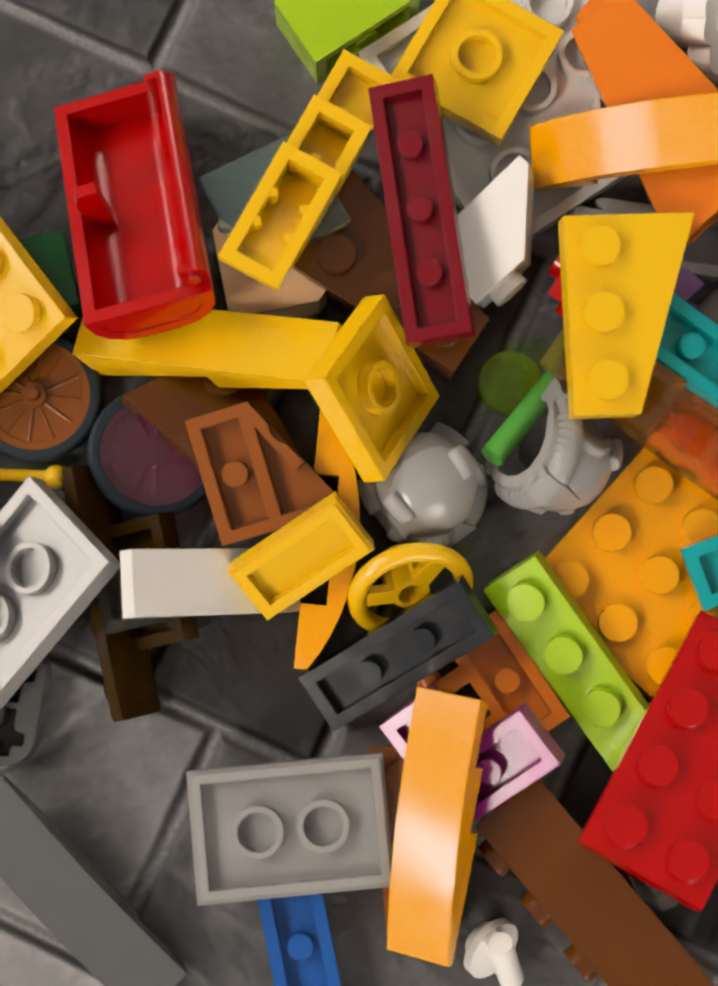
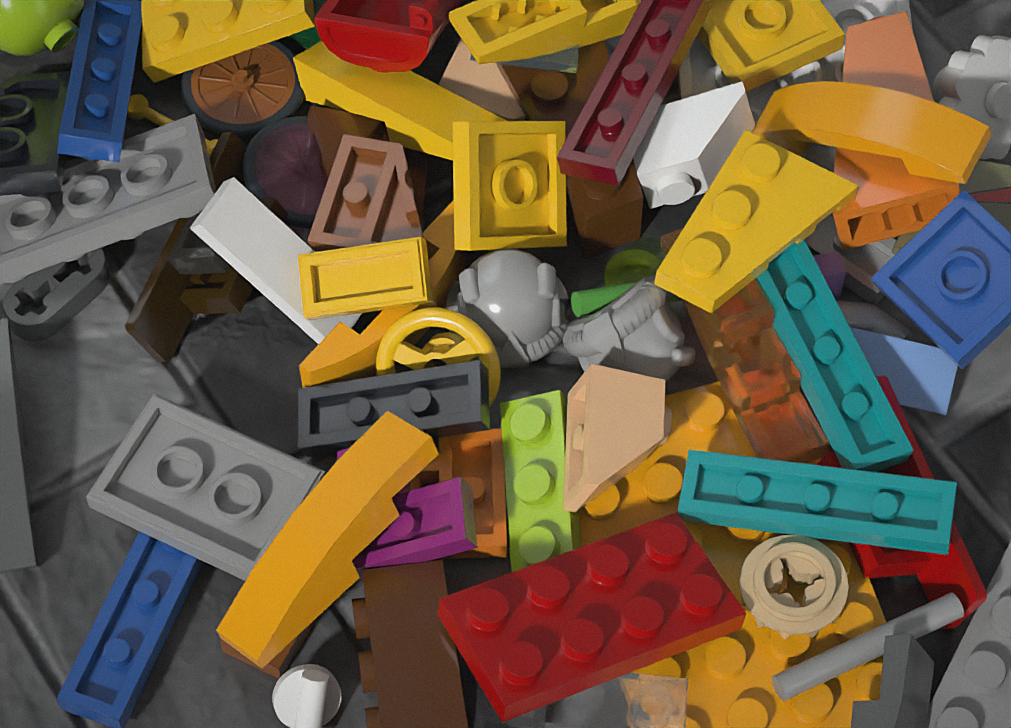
camera: 35 degrees right, 25 degrees down
(611, 582) = (610, 430): none -> light nougat slope

